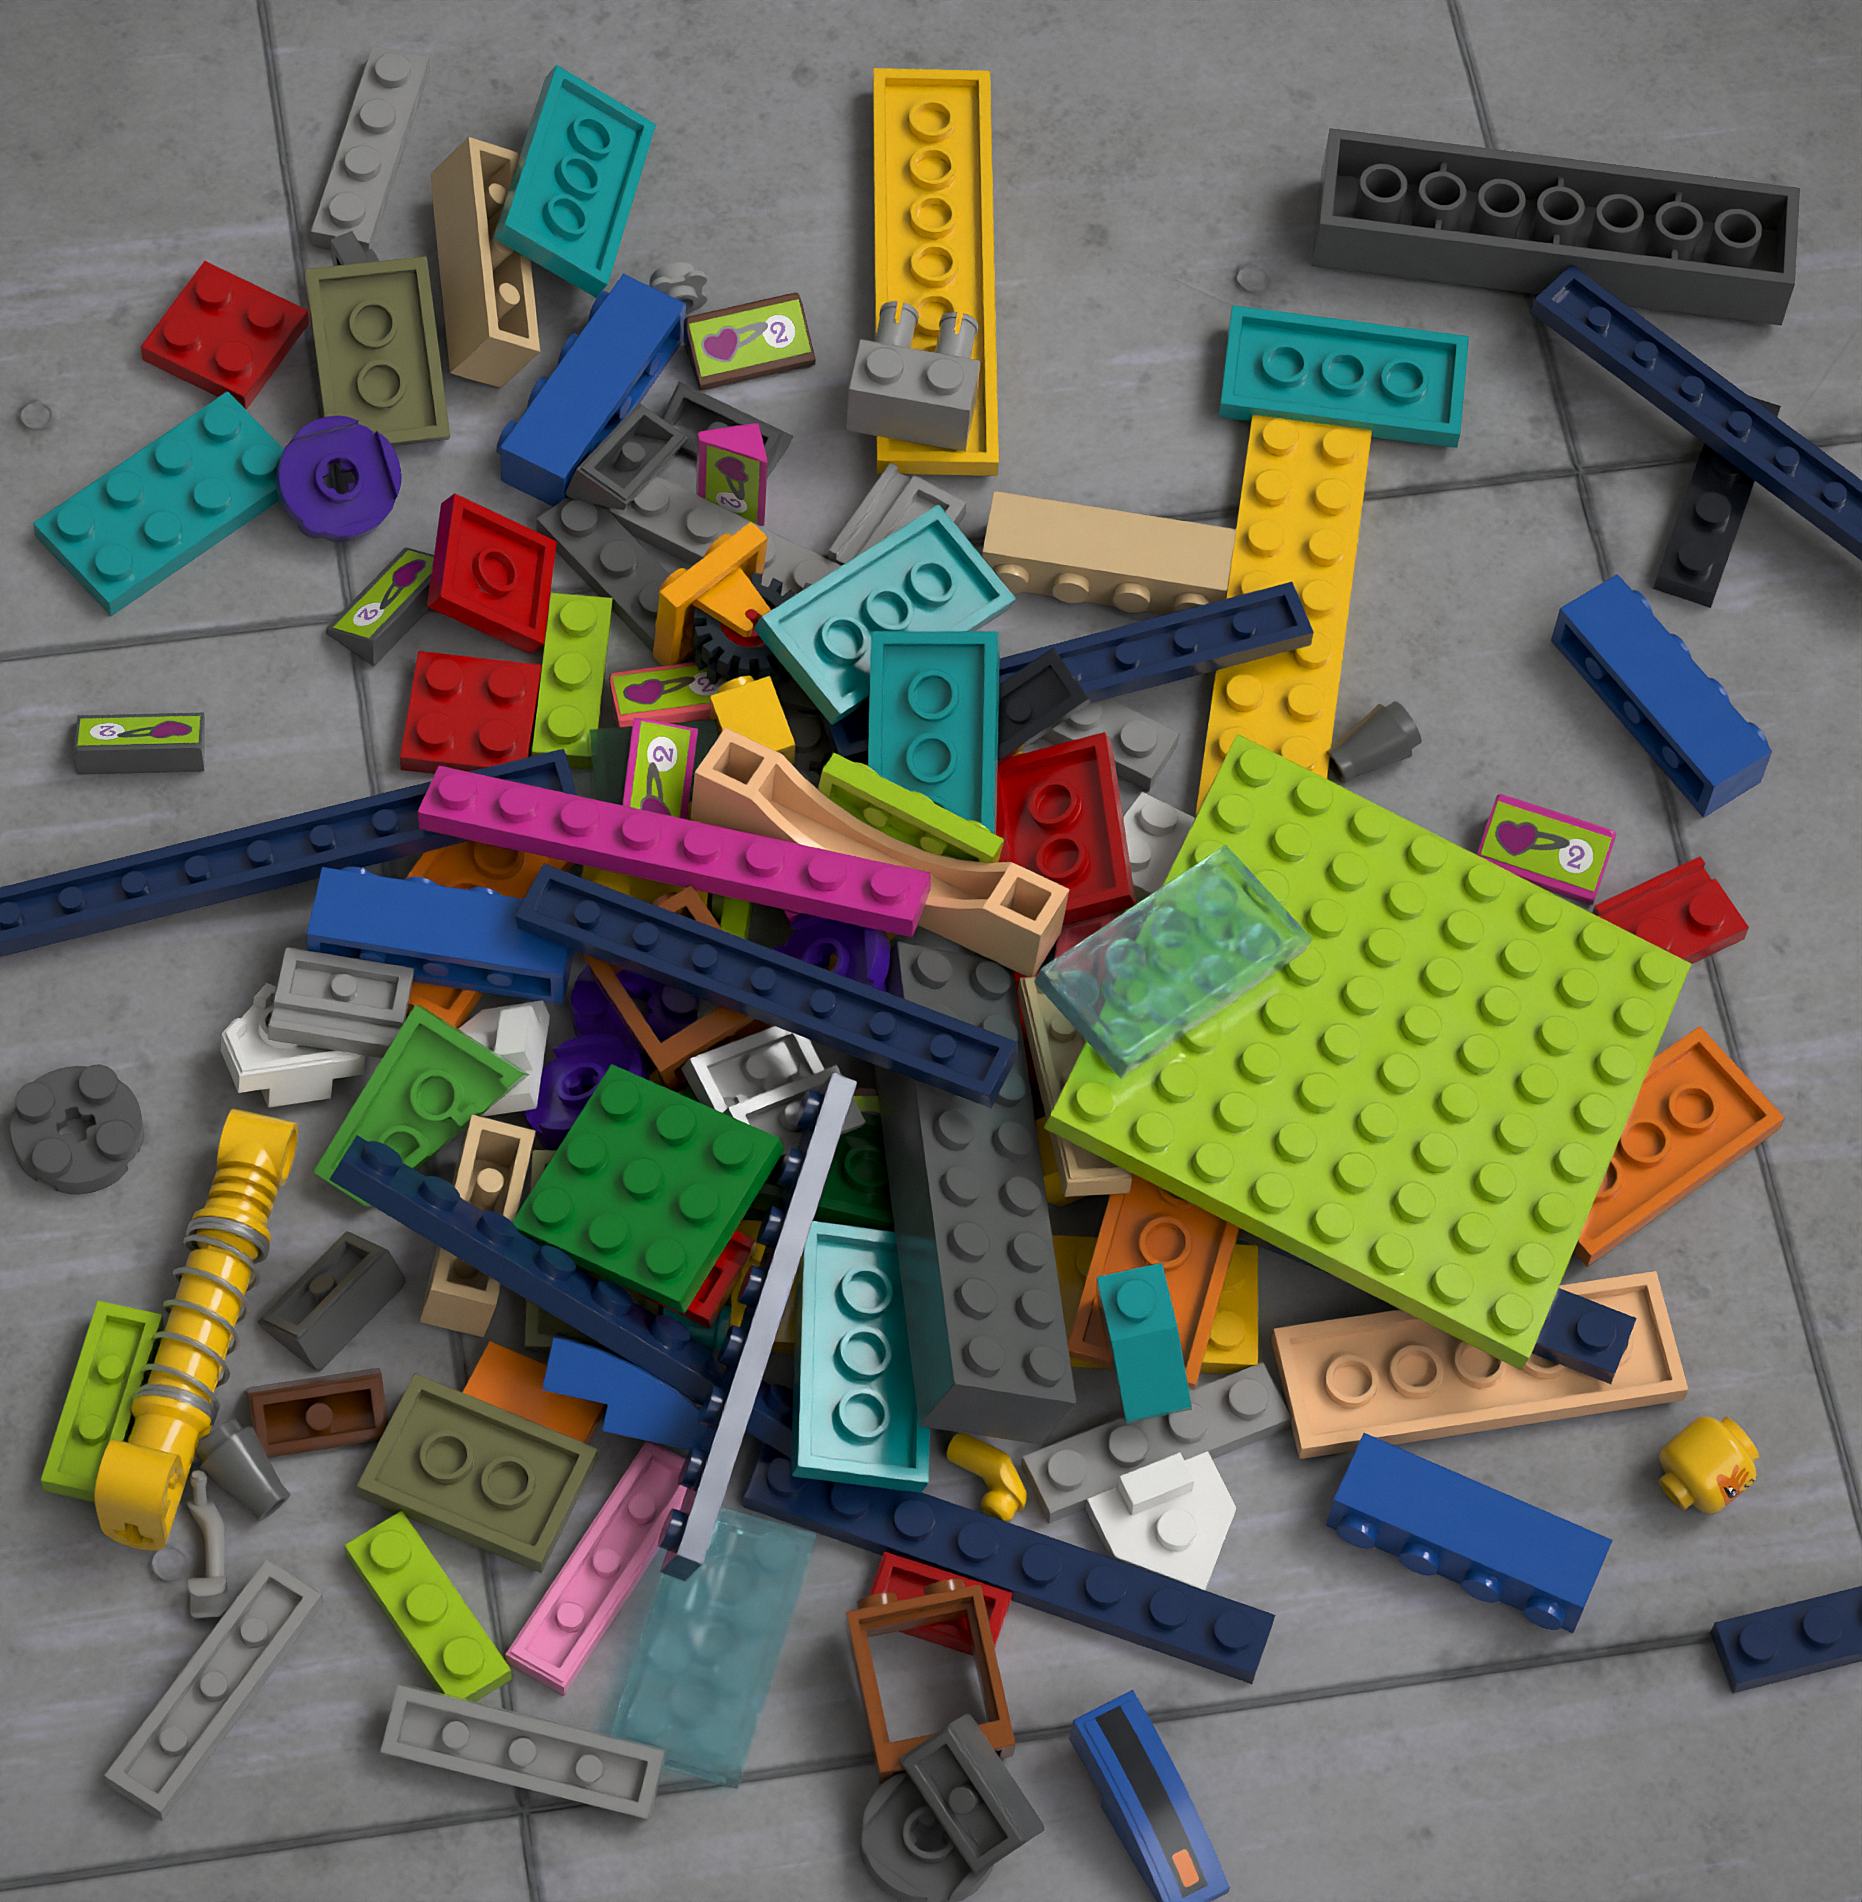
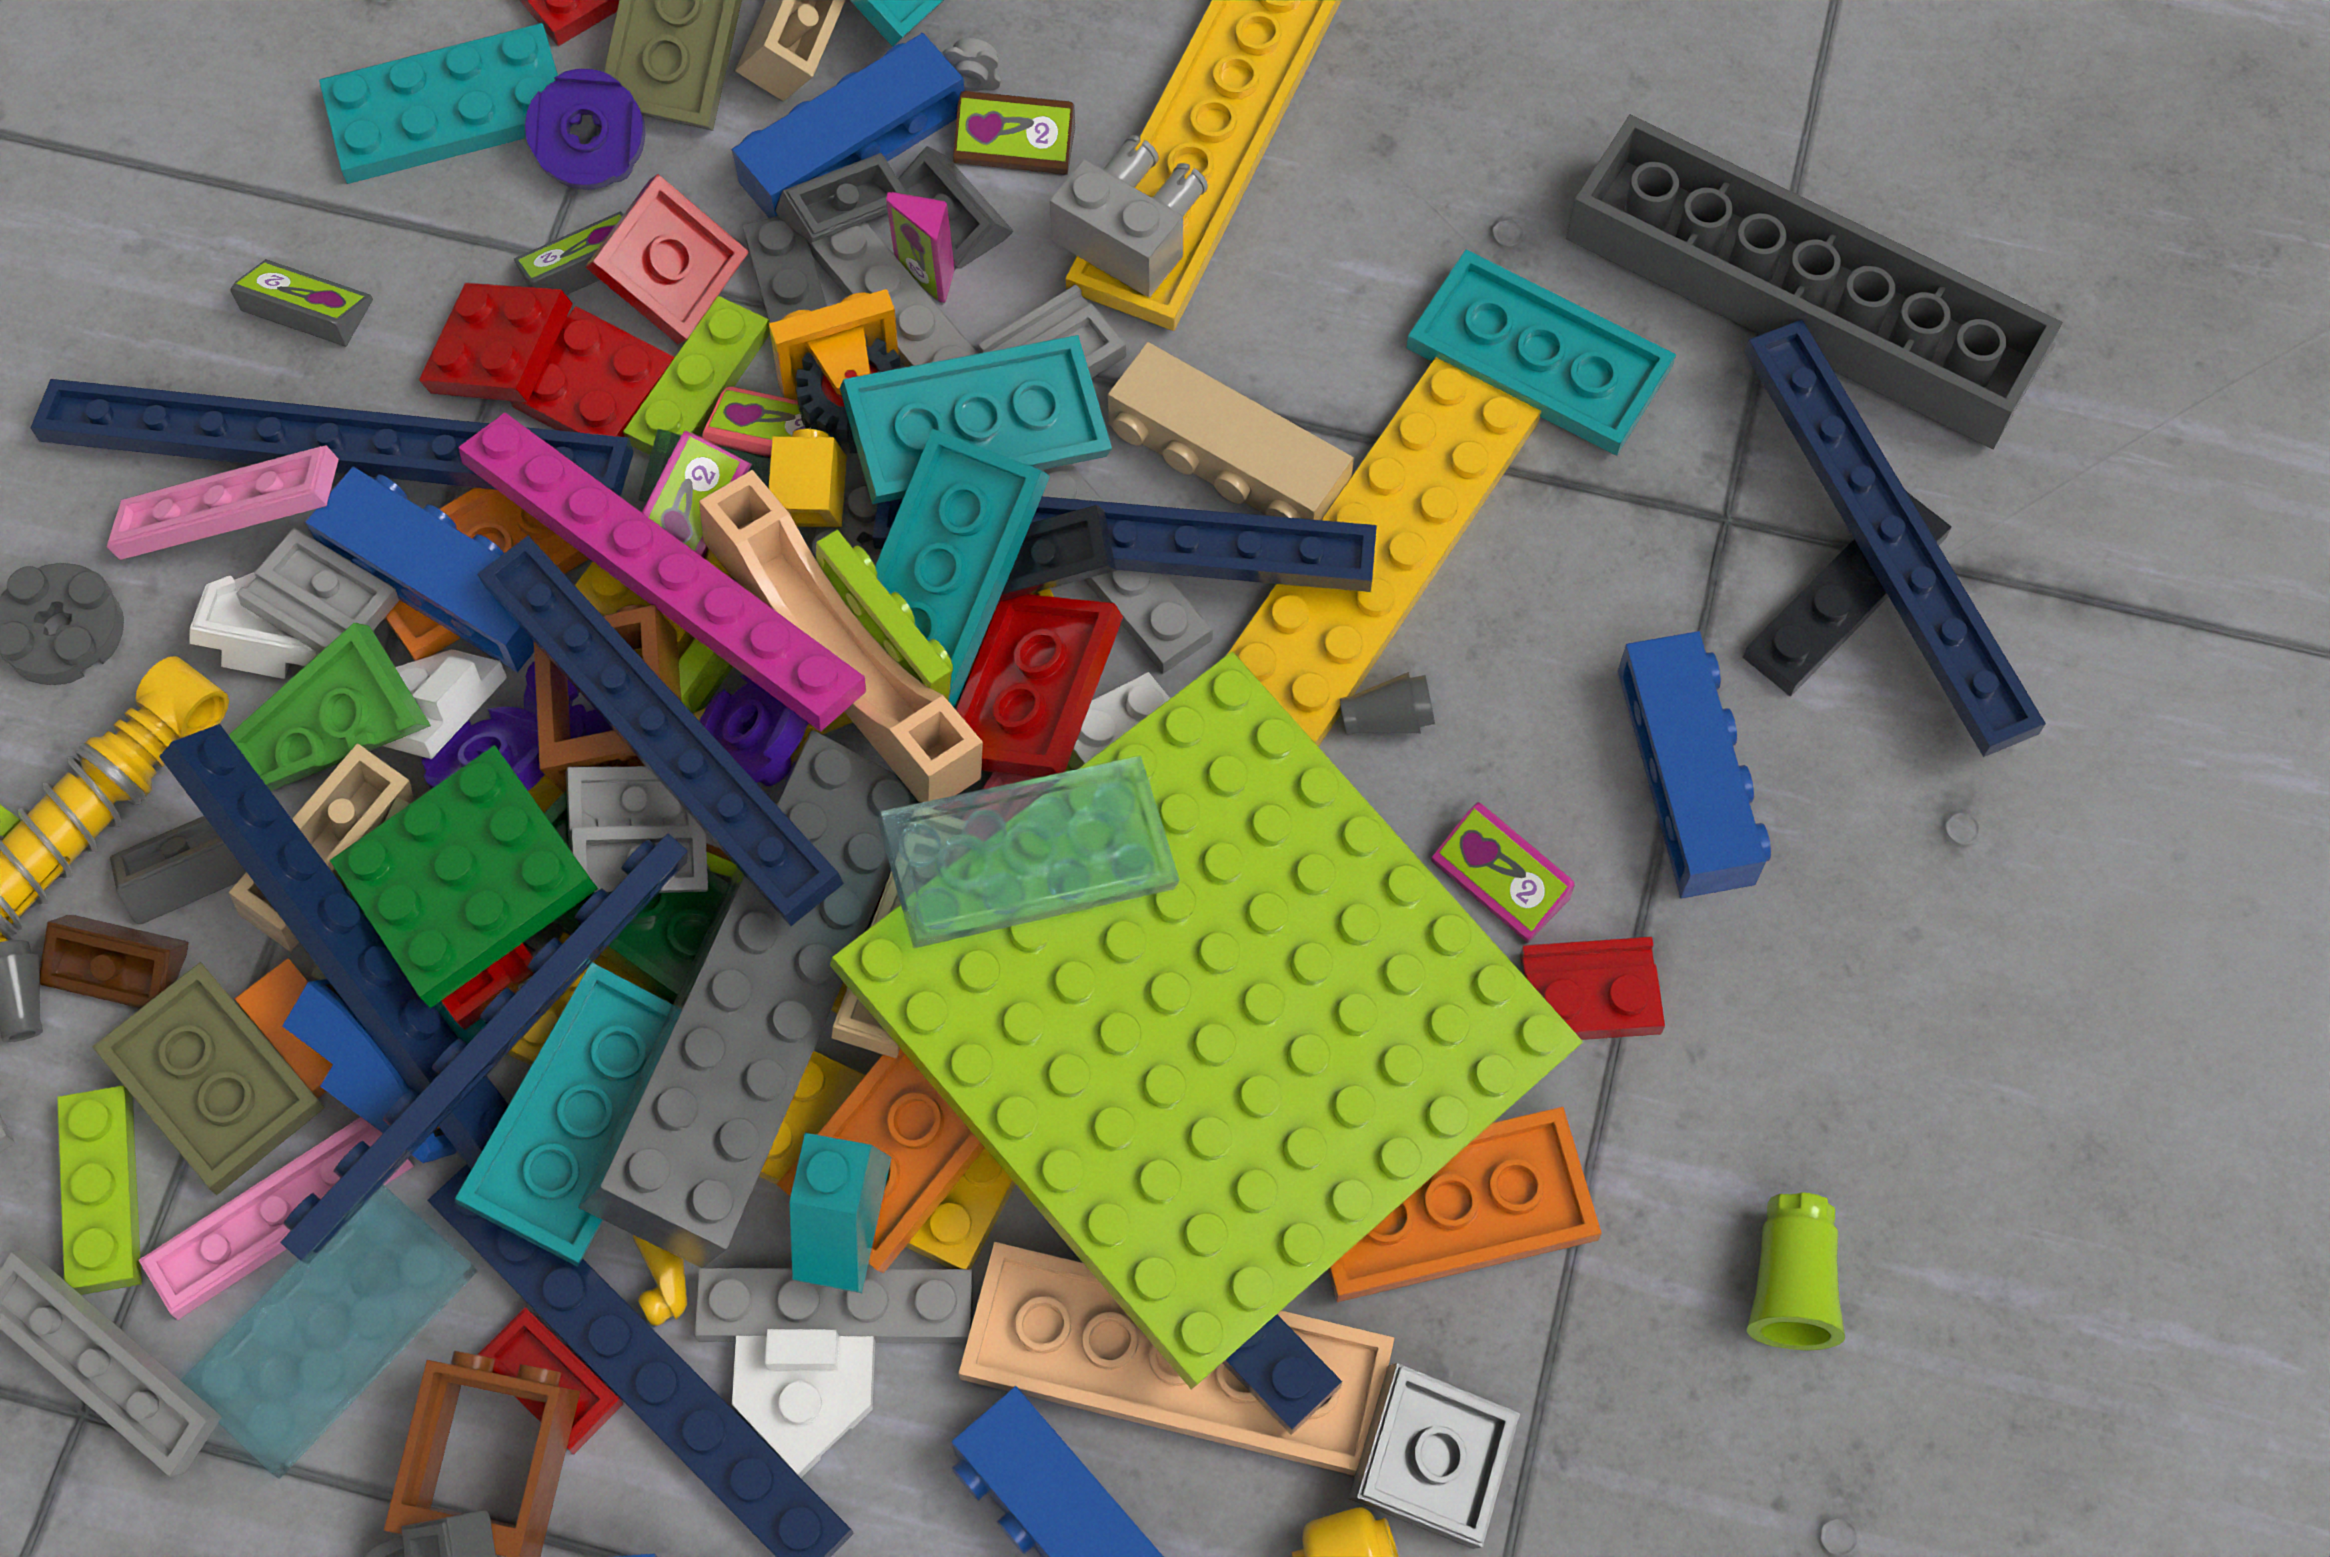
camera: 30 degrees right, 5 degrees up
(196, 952) = (223, 502): none -> bright pink tile
(362, 711) = (496, 342): none -> red plate
(1737, 1354) = (1434, 1456): none -> tile

